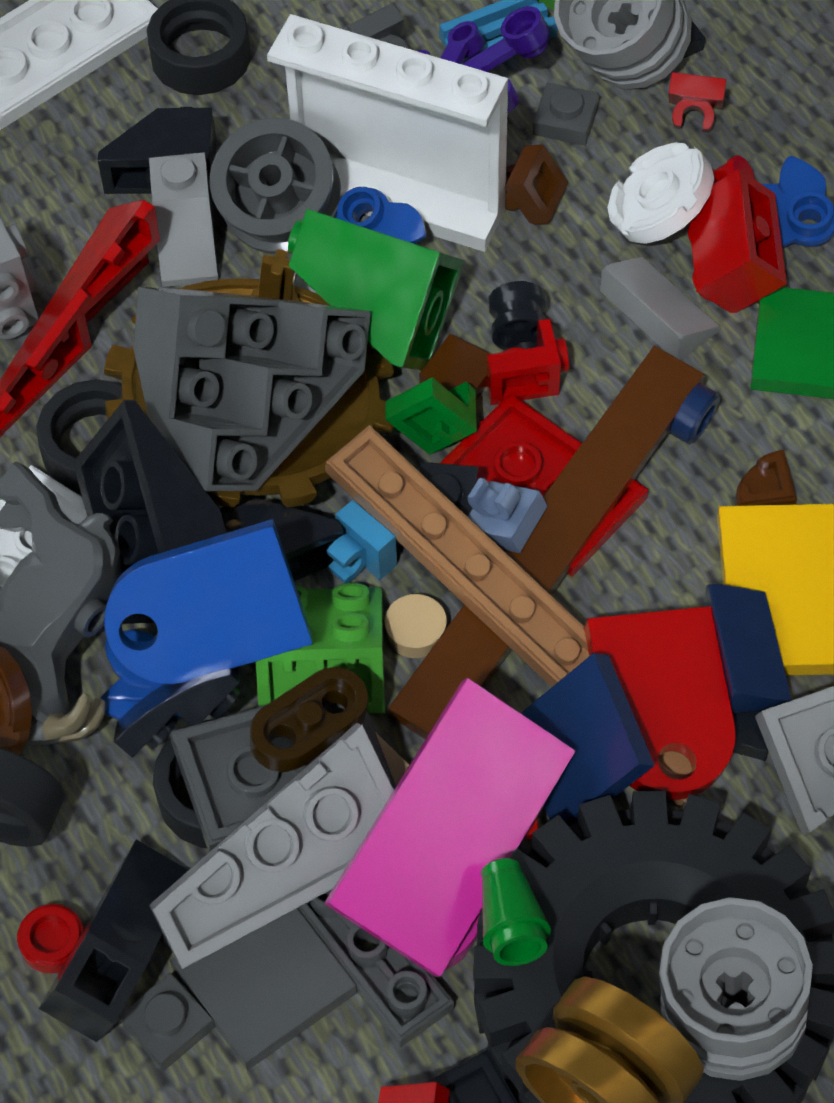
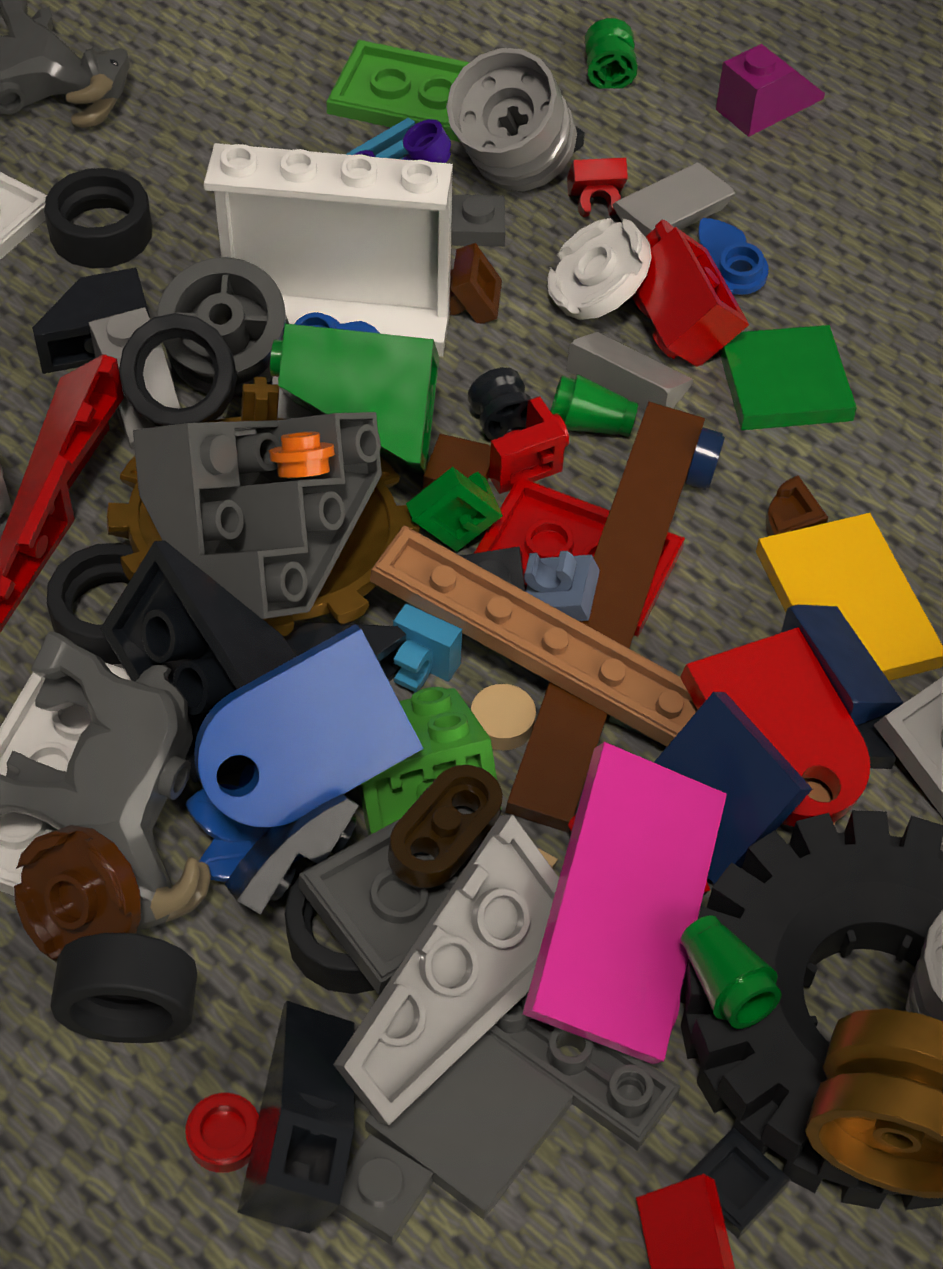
camera: 20 degrees left, 5 degrees down
(172, 212) = (167, 328): none -> black tyre
(284, 342) = (302, 455): none -> orange plate
(604, 337) = (592, 407): none -> green cone
(768, 132) = (677, 199): none -> light grey slope

